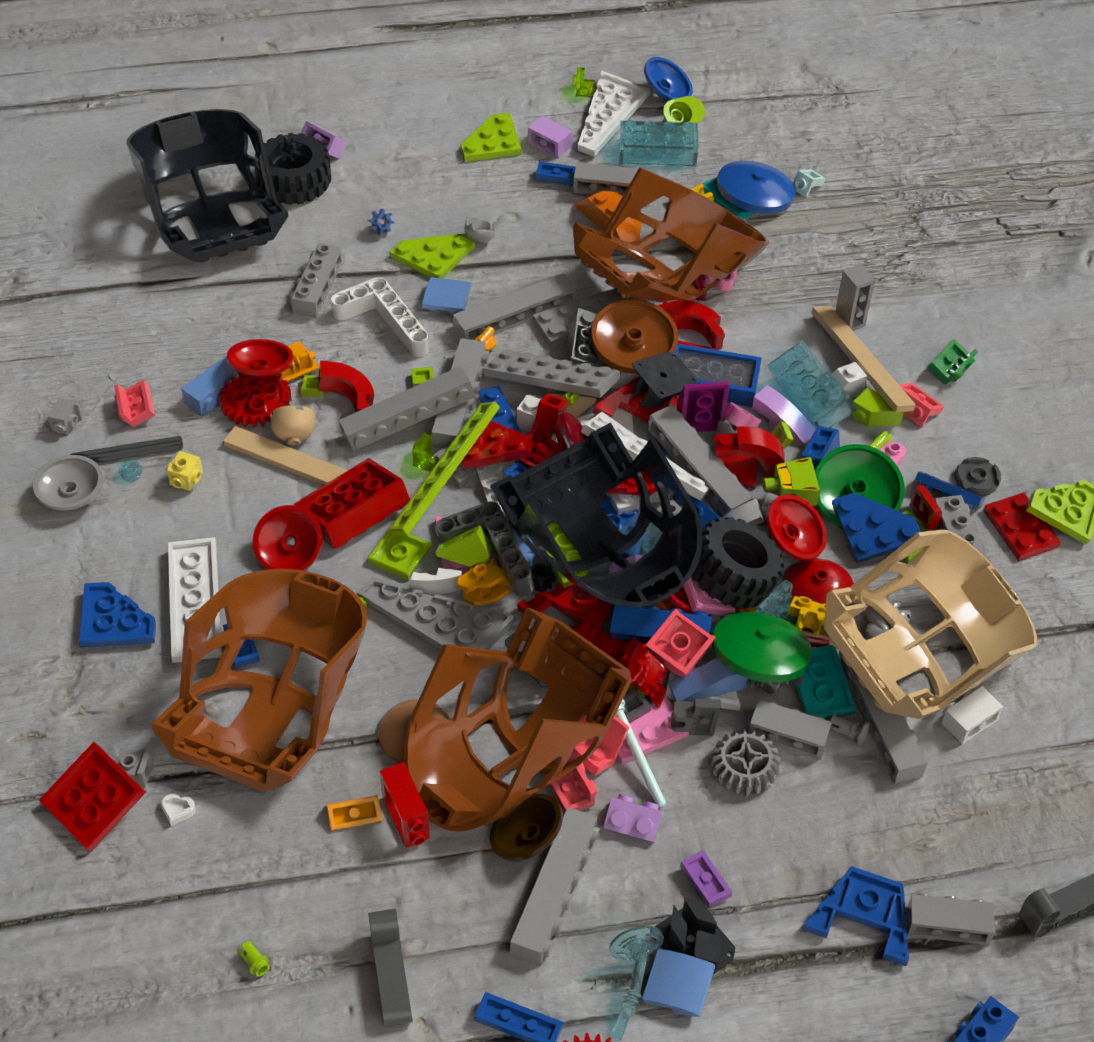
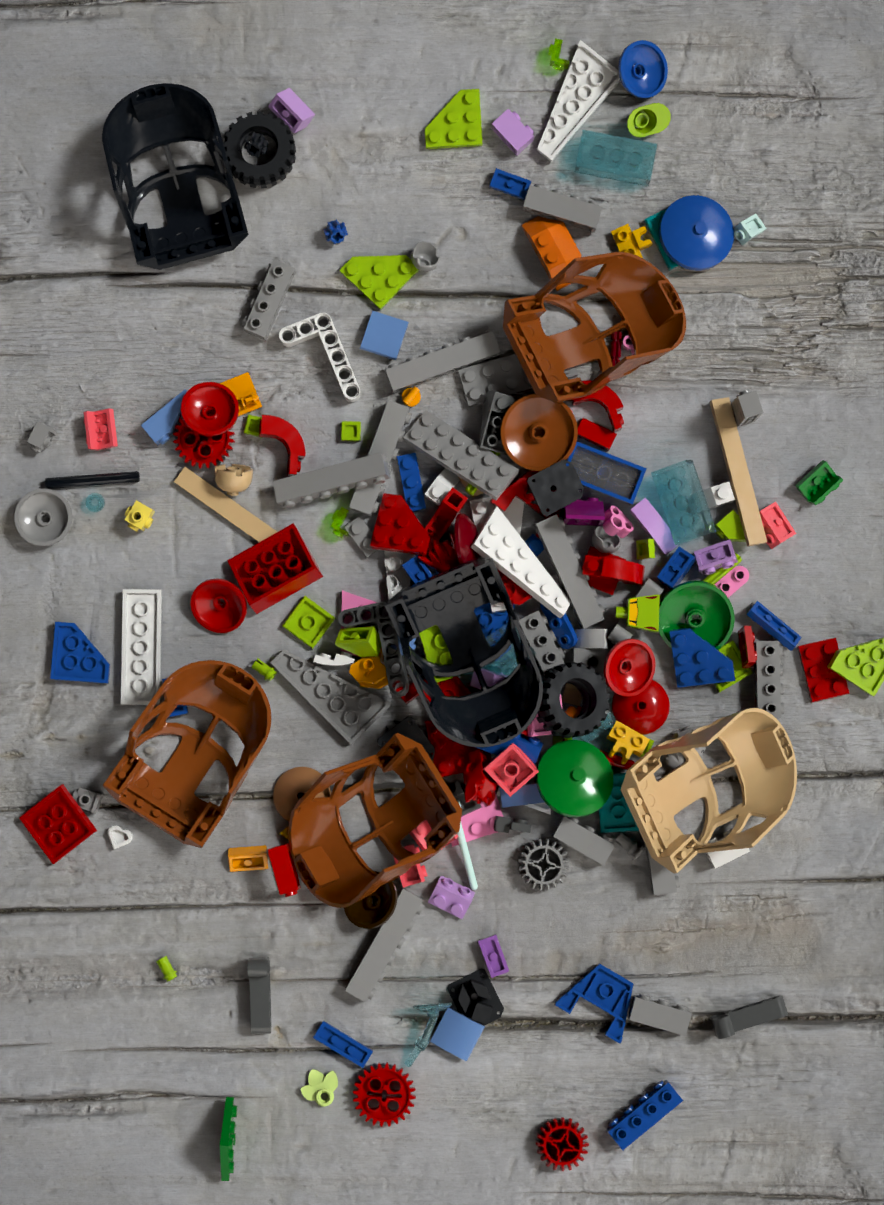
camera: 10 degrees right, 35 degrees up
(443, 469) = (355, 549): lime tile -> none
(864, 431) = (715, 557): none -> lavender bracket
(978, 476) = (803, 611): dark grey tile -> none

